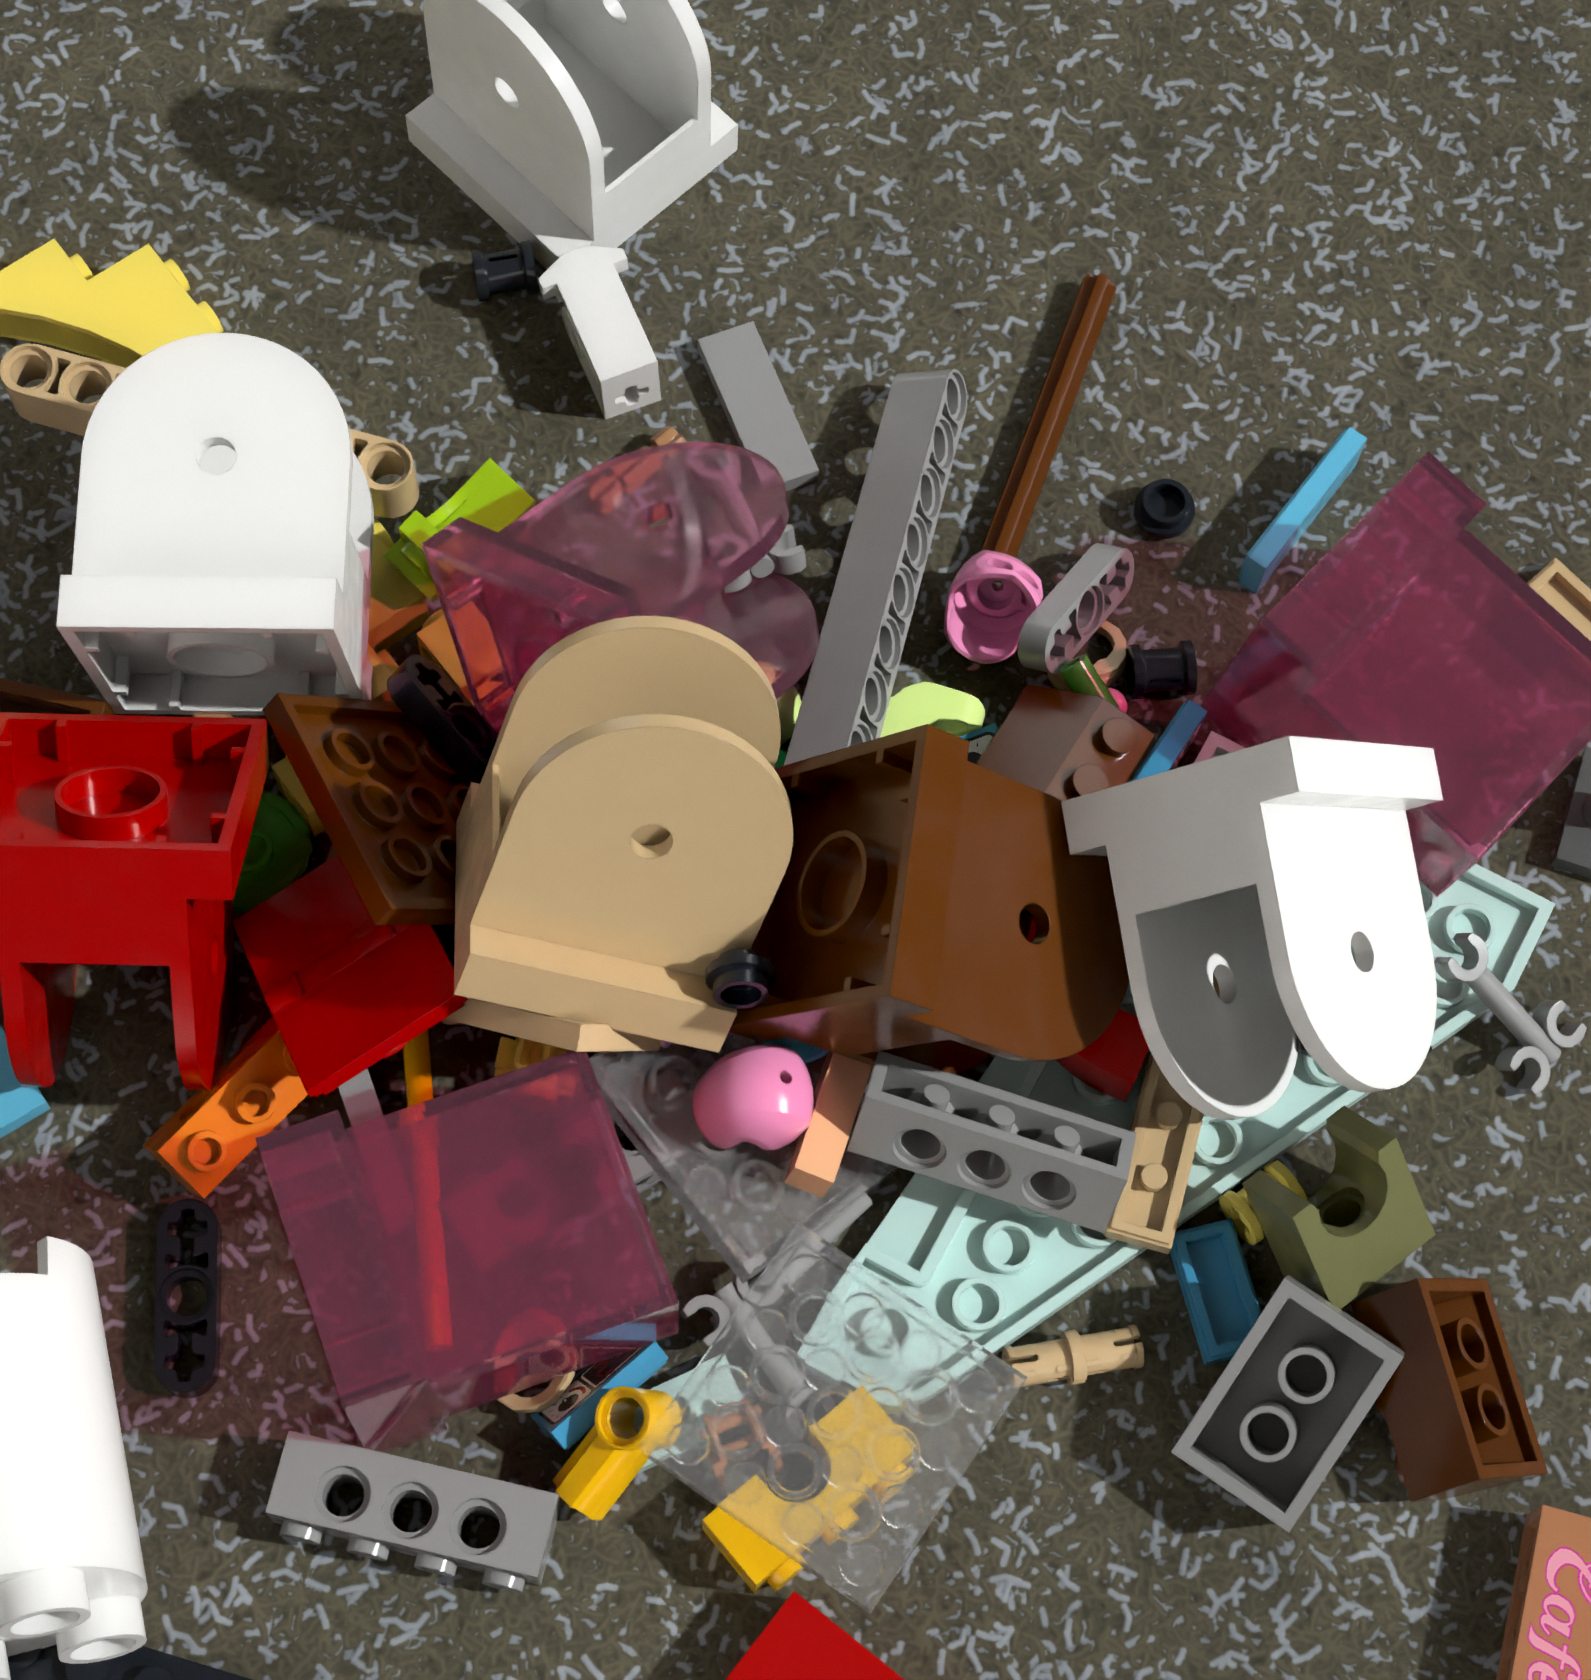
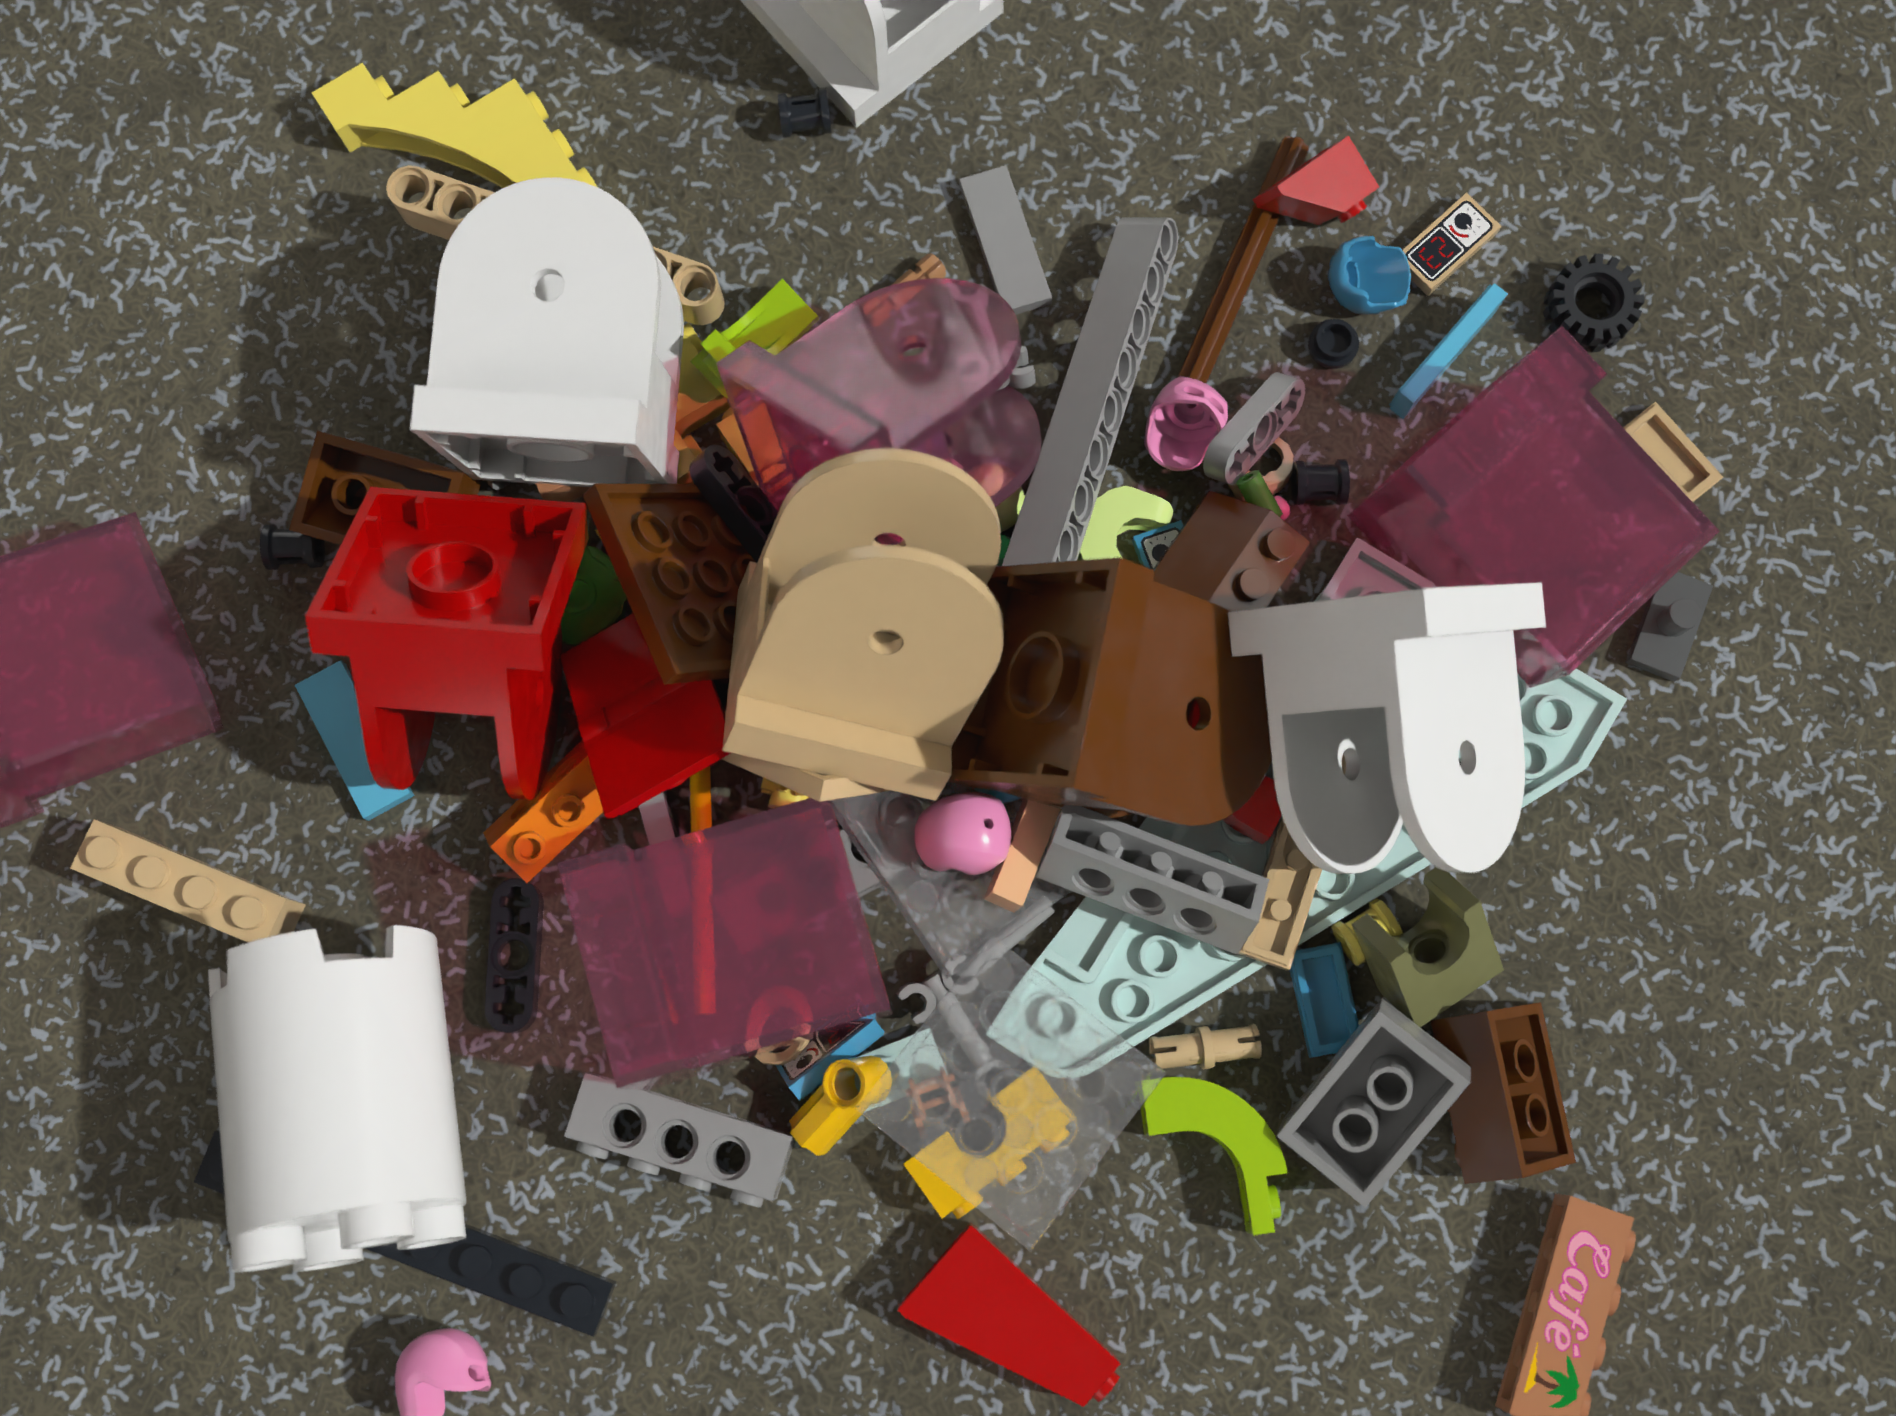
camera: 10 degrees right, 10 degrees up
(604, 327) = (882, 165): white piece -> none
(740, 978) = (955, 747): black plate -> none
(1117, 1449) = (1234, 1124): none -> lime arch
(1136, 328) = (1322, 187): none -> slope
(1174, 741) = (1314, 560): dark azure tile -> none
(1200, 428) = (1369, 276): none -> dark azure hair
(1290, 389) = (1449, 243): none -> tile
(1488, 423) = (1609, 281): none -> black tyre
(1536, 1034) = (1600, 805): light grey bar -> none

